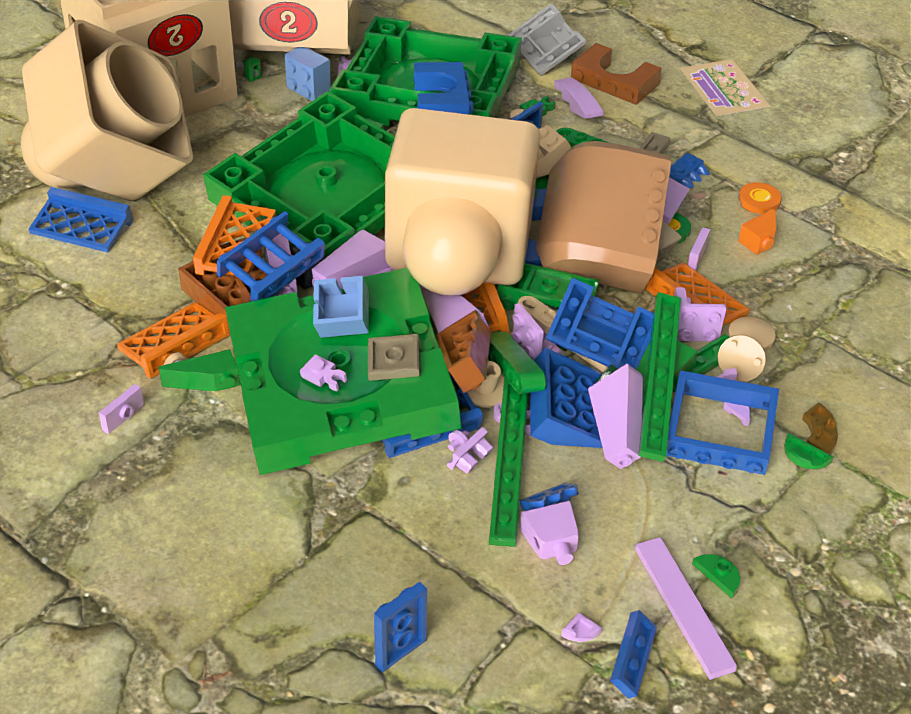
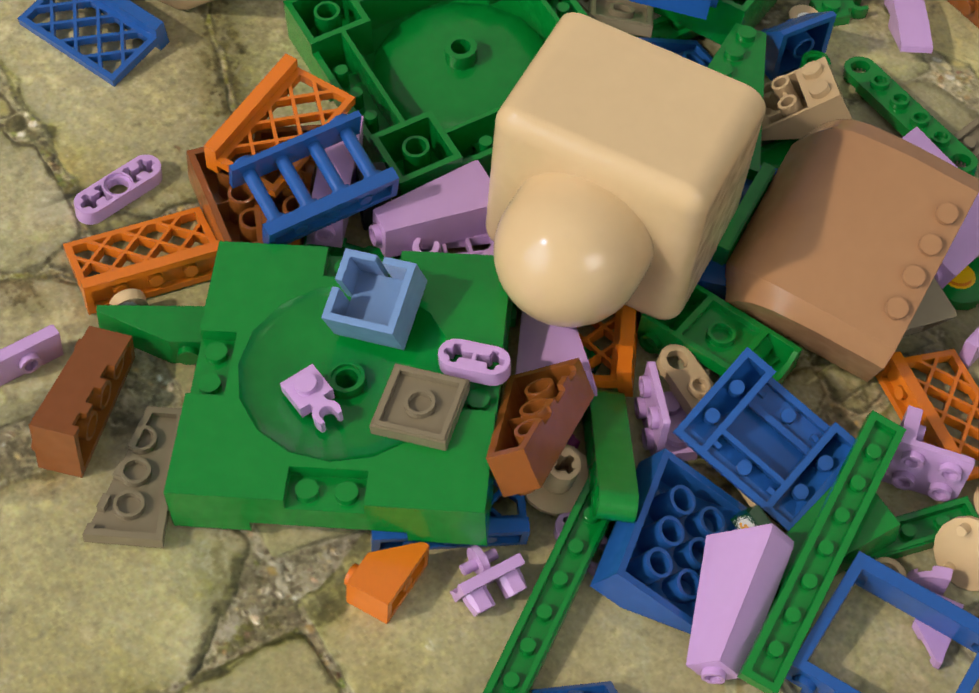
camera: 15 degrees right, 10 degrees up
(128, 316) = (111, 202): none -> lavender beam
(171, 423) = (81, 401): none -> dark orange wedge
(230, 458) = (134, 504): none -> dark tan wing
(405, 466) = (385, 579): none -> orange slope
(416, 323) = (474, 361): none -> lavender beam
(536, 215) = (744, 213): none -> green tile

